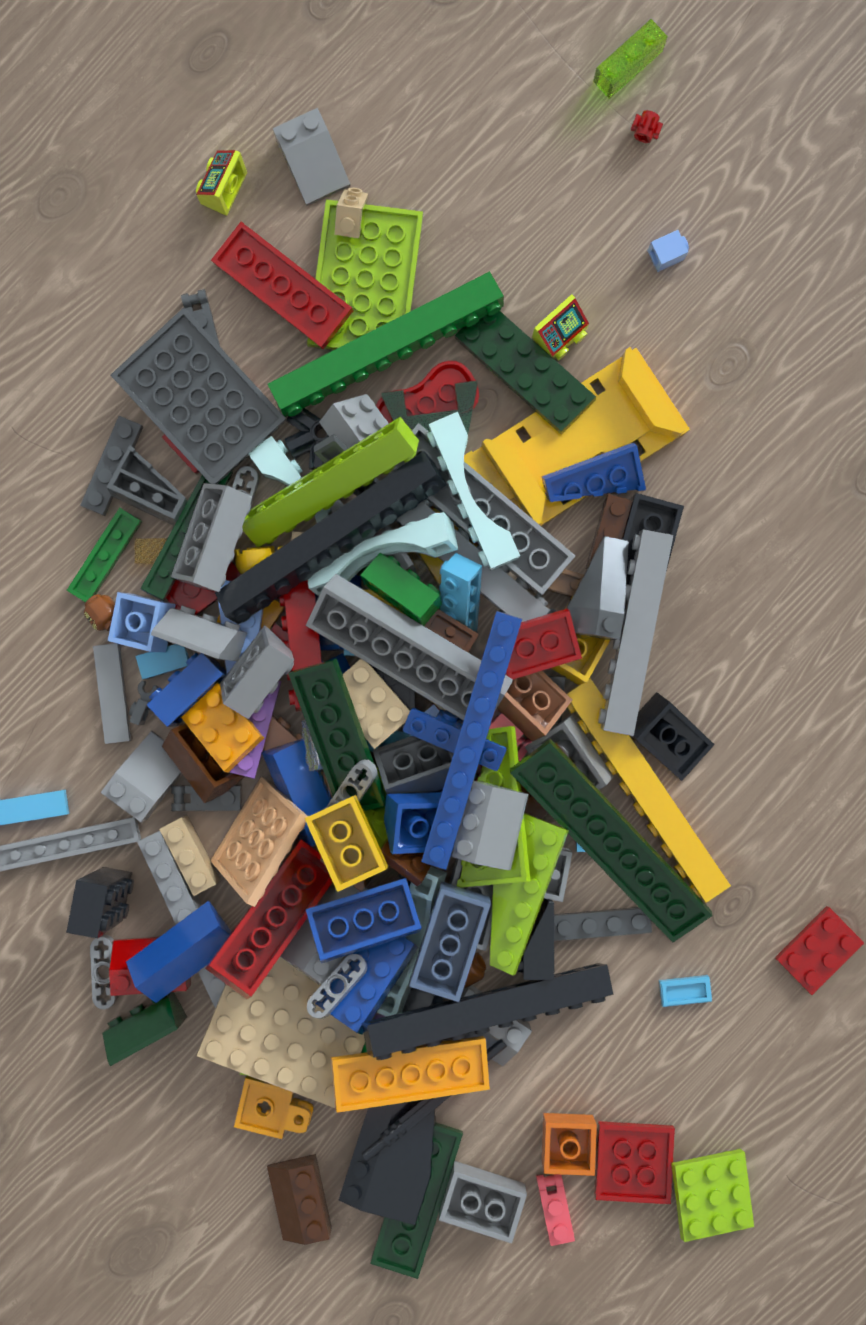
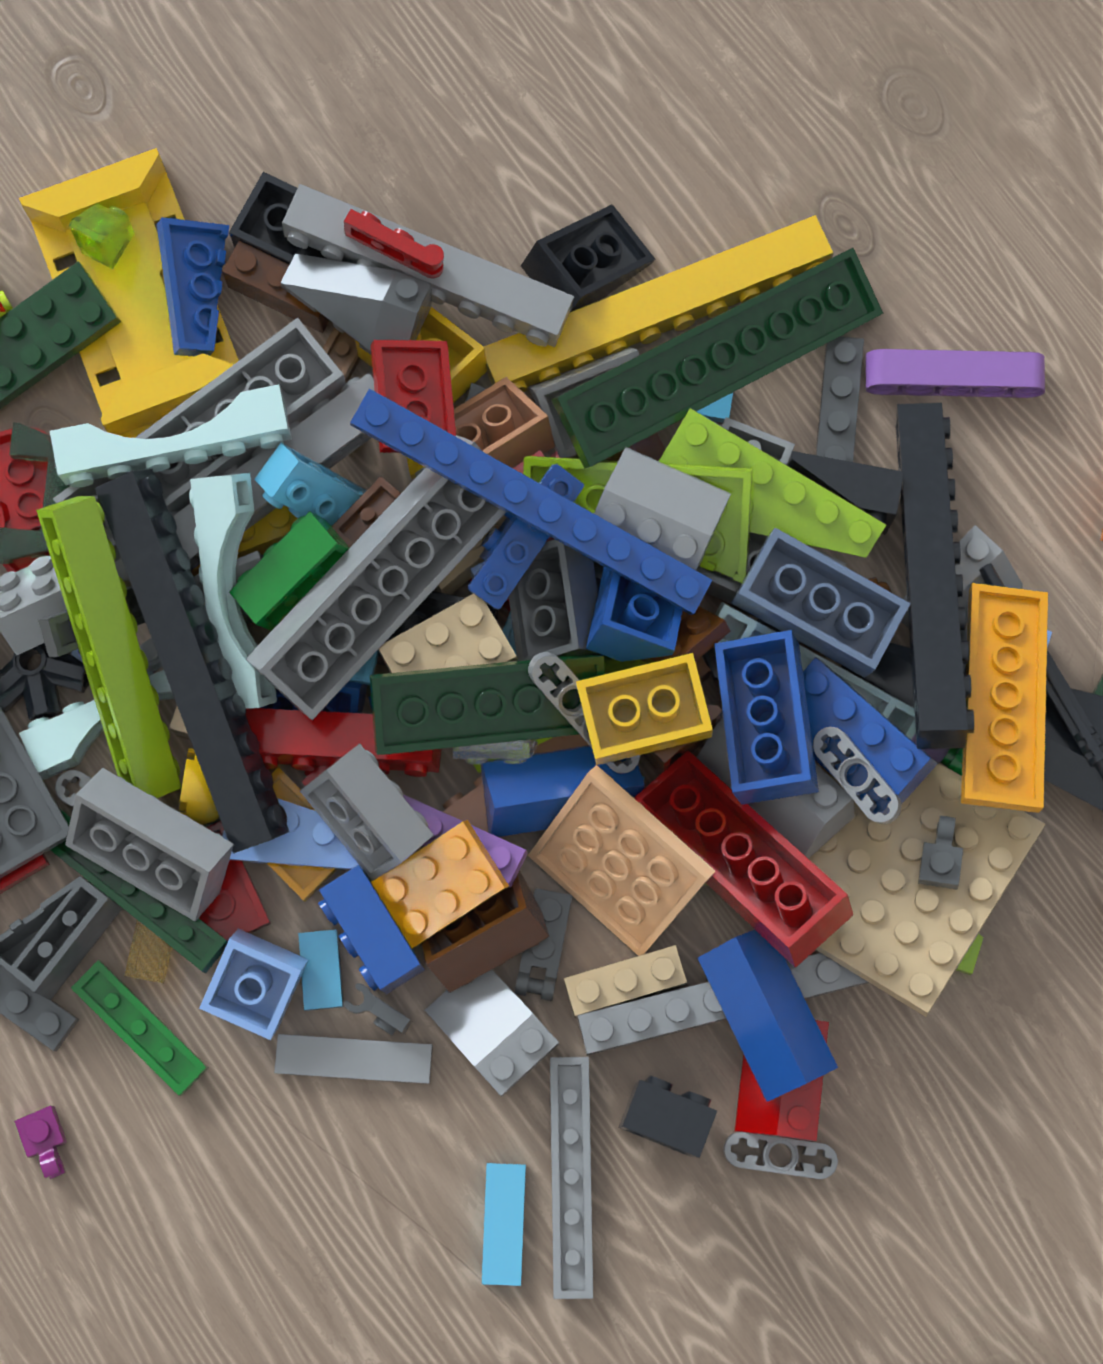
camera: 80 degrees left, 10 degrees down
(27, 510) = (41, 1136): none -> magenta plate
(99, 611) = (225, 1047): dark orange head -> none
(142, 1027) = (874, 1105): dark green slope -> none
(201, 633) = (290, 888): light grey slope -> none
(283, 1112) = (1042, 919): light orange plate -> none
(296, 1047) = (941, 861): none -> dark grey plate
(618, 409) = (102, 233): none -> clear neon green slope
(639, 998) = (955, 373): none -> medium lavender beam
(641, 610) = (394, 244): none -> red plate
(685, 990) = (956, 311): medium azure tile -> none
(819, 950) = (929, 122): red plate -> none

